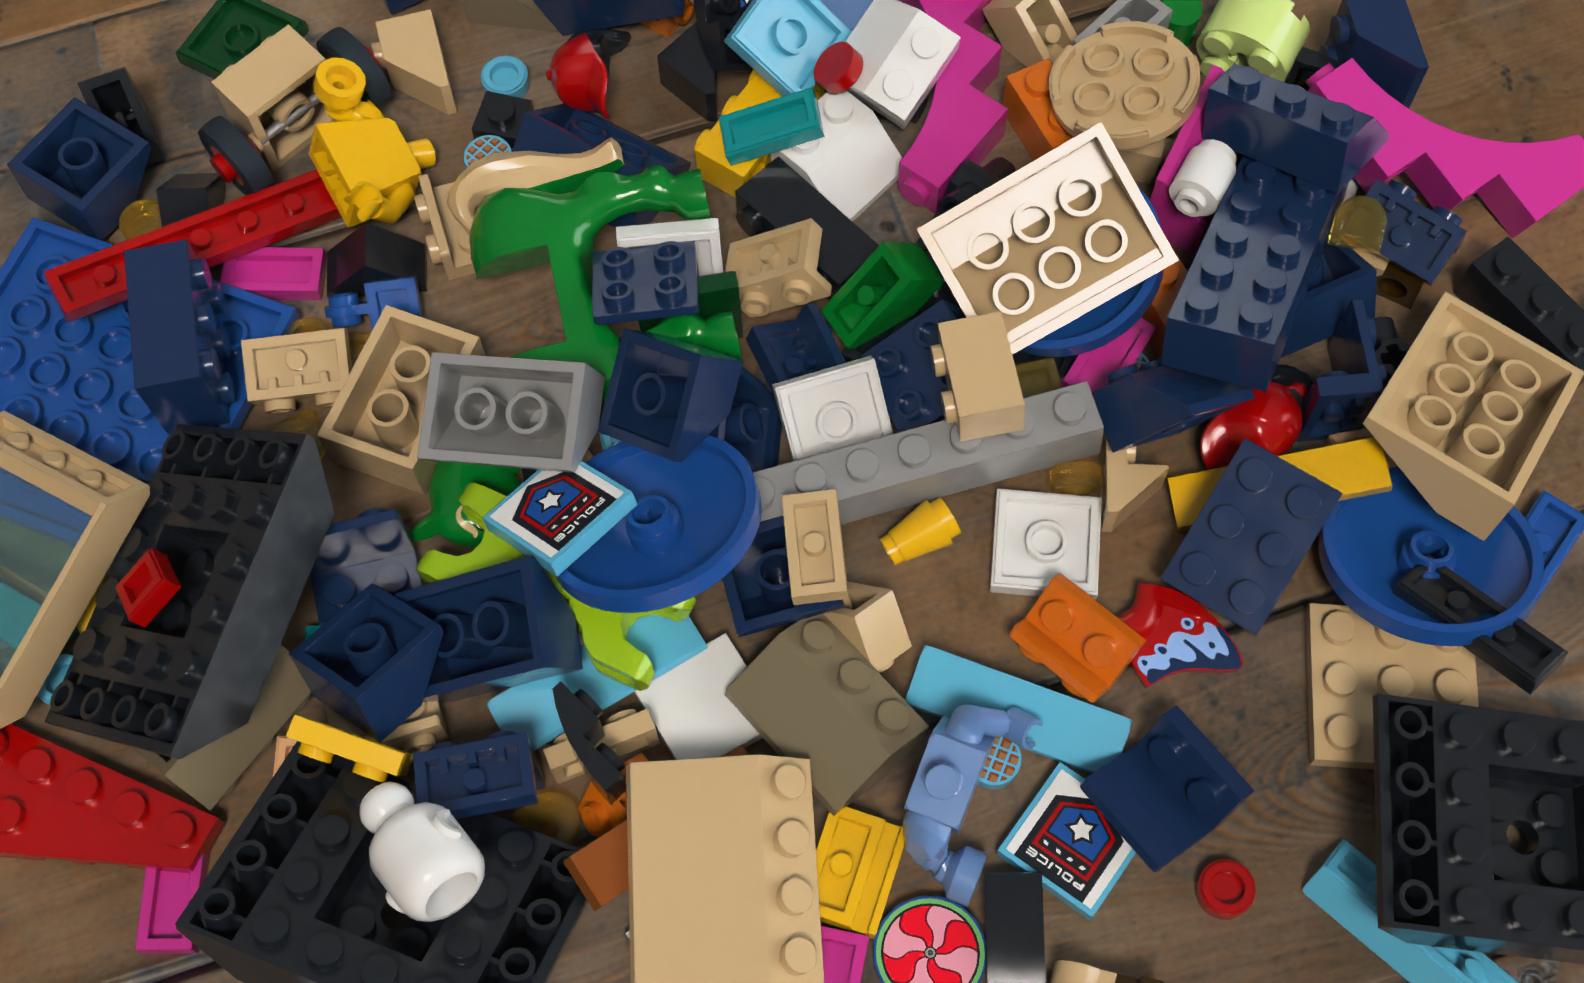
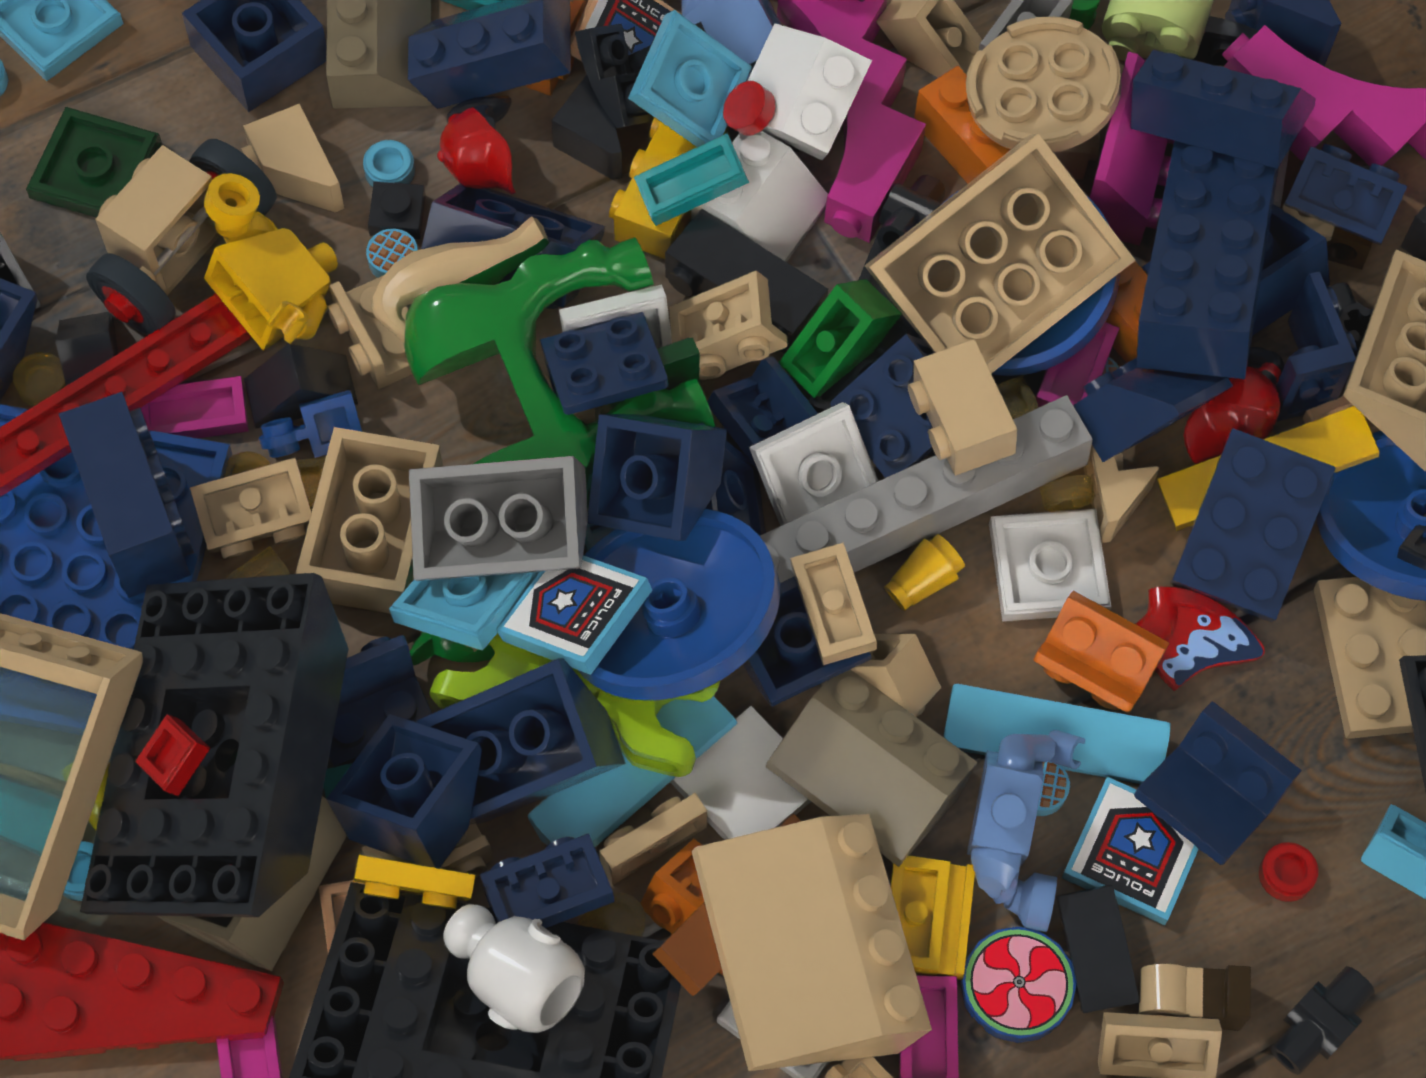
camera: 15 degrees left, 0 degrees up
(457, 492) = (461, 608): none -> medium azure tile
(584, 730) = (637, 820): black slope -> none
(1203, 178) = (1142, 171): white brick -> none
(1359, 225) = (1301, 195): clear yellow tile -> none

